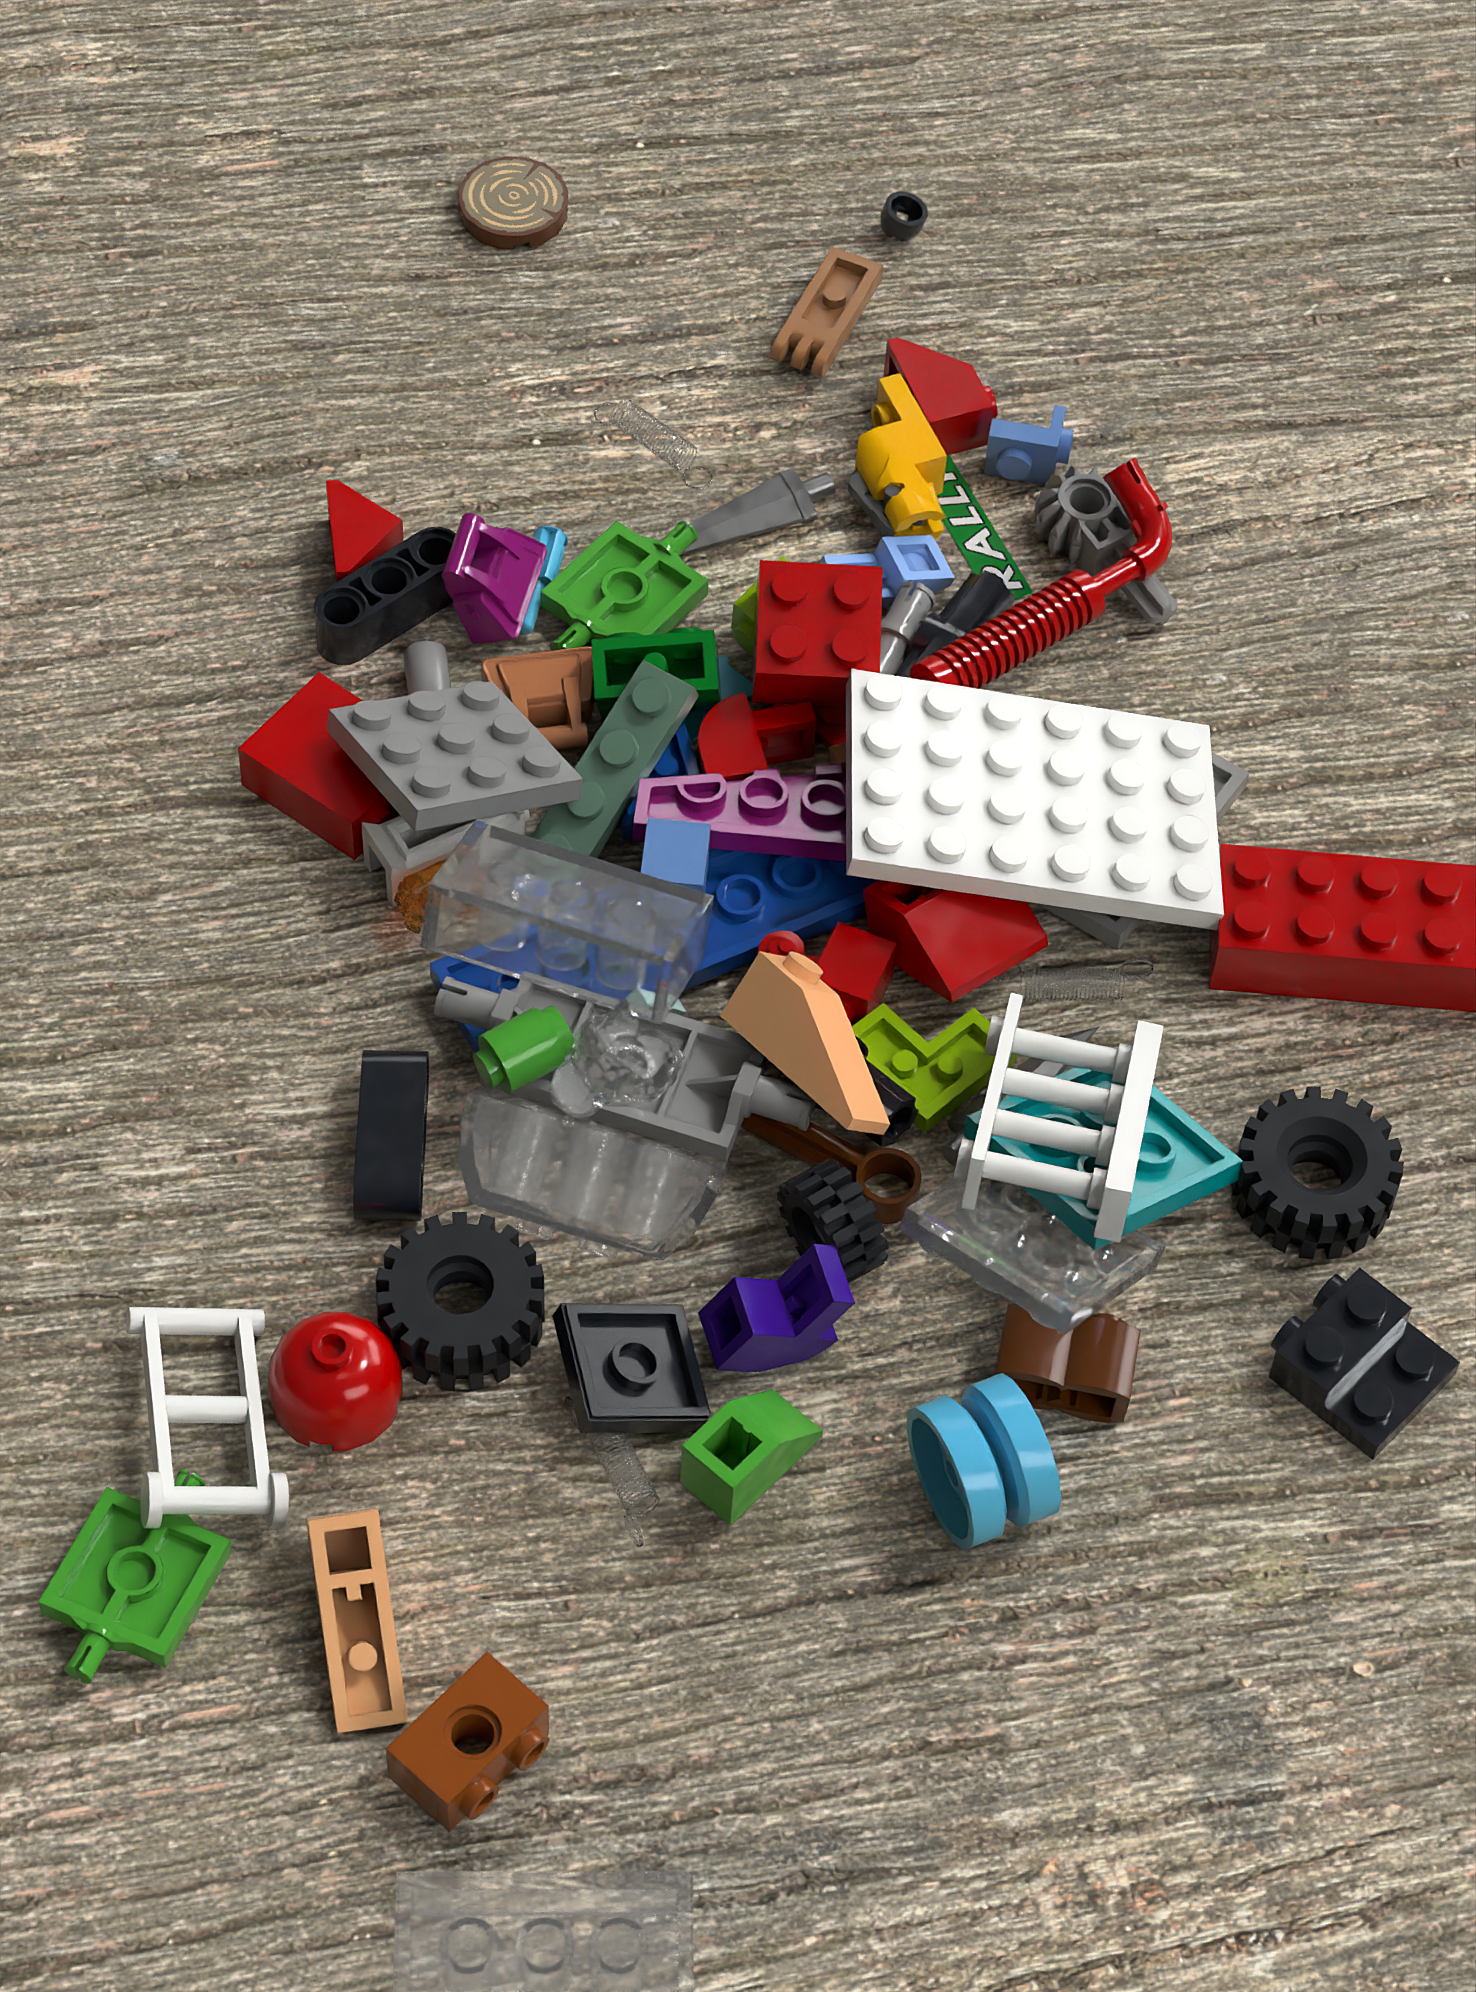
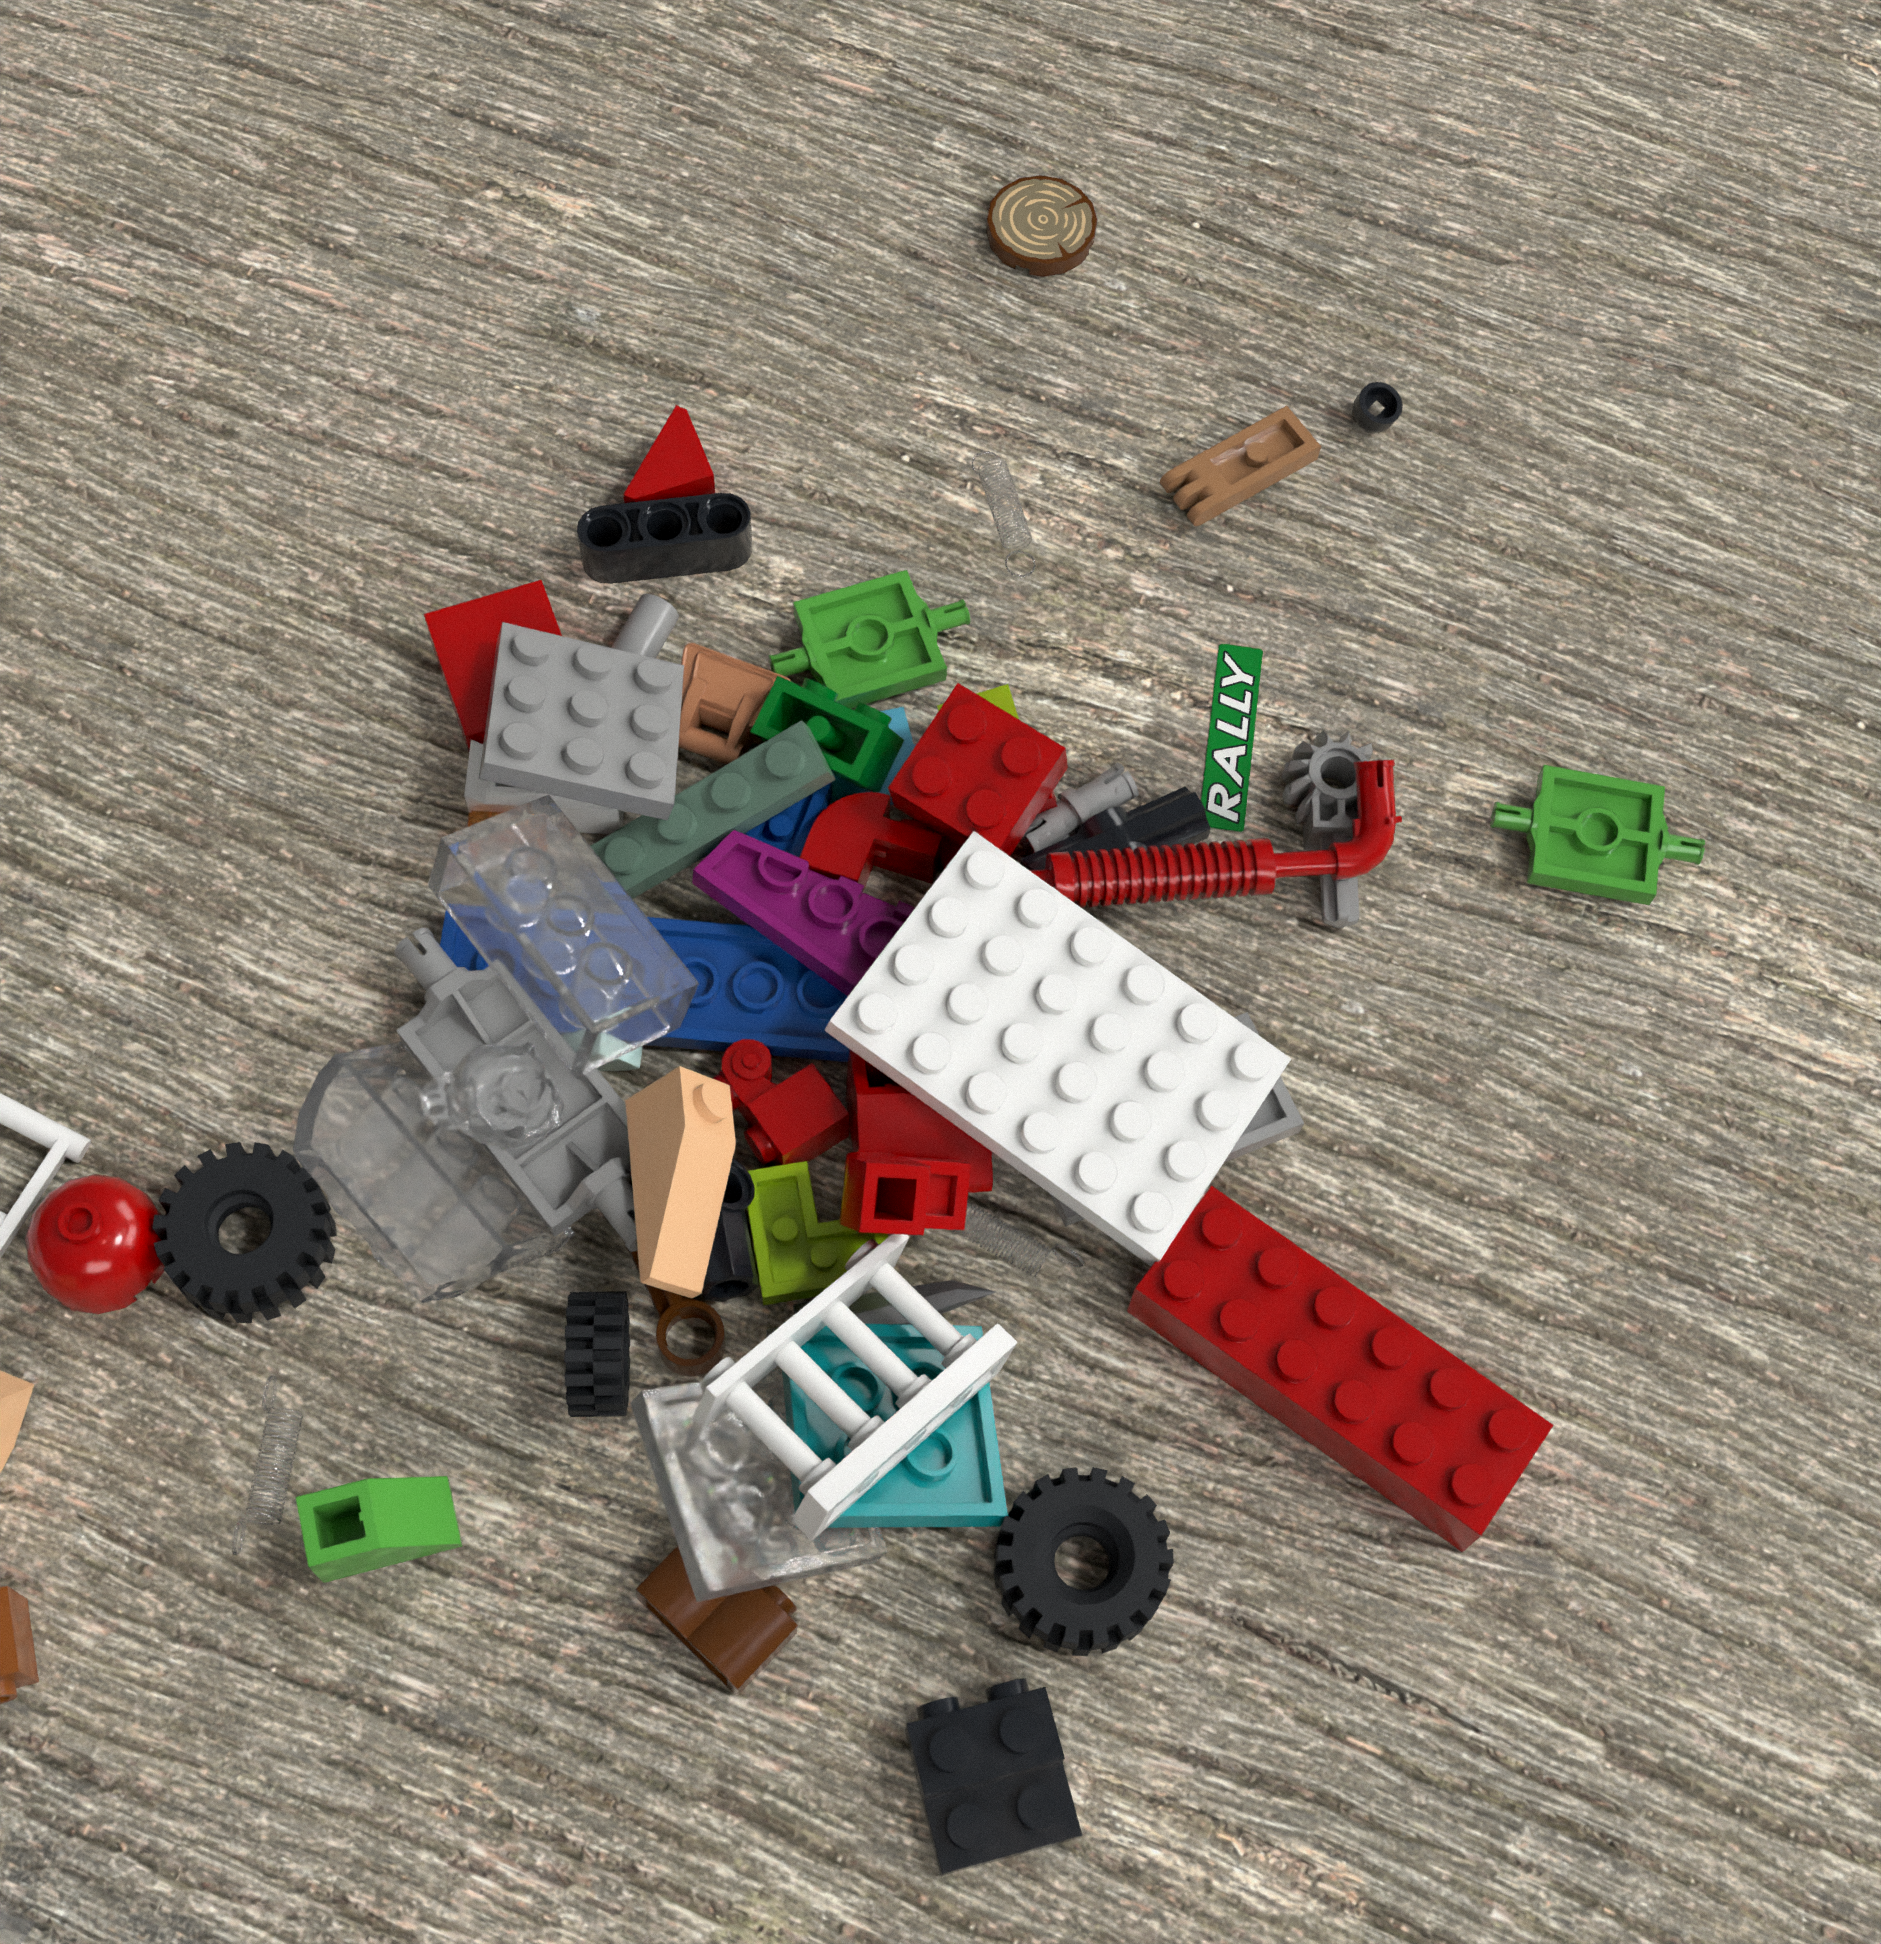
camera: 30 degrees right, 10 degrees up
(391, 1135) = (314, 1023): black beam -> none
(492, 578) = (756, 572): magenta piece -> none
(523, 1048) = (428, 1035): bright green brick -> none
(555, 543) = (818, 577): medium azure axle -> none
(631, 1368) = (339, 1384): black plate -> none
(677, 852) = (706, 929): medium blue brick -> none
(763, 509) = (1057, 625): flat silver bar -> none
(778, 1321) = (491, 1411): dark purple brick -> none
(899, 466) = (1192, 653): yellow plate -> none
(903, 560) = (1136, 740): light blue slope -> none
(946, 392) = (1282, 603): red slope -> none
(983, 1461) = (552, 1671): medium azure wheel -> none
(993, 964) = (903, 1193): none -> red brick
(1028, 450) = (1327, 696): medium blue bracket -> none
(1311, 453) = (1596, 835): none -> bright green plate

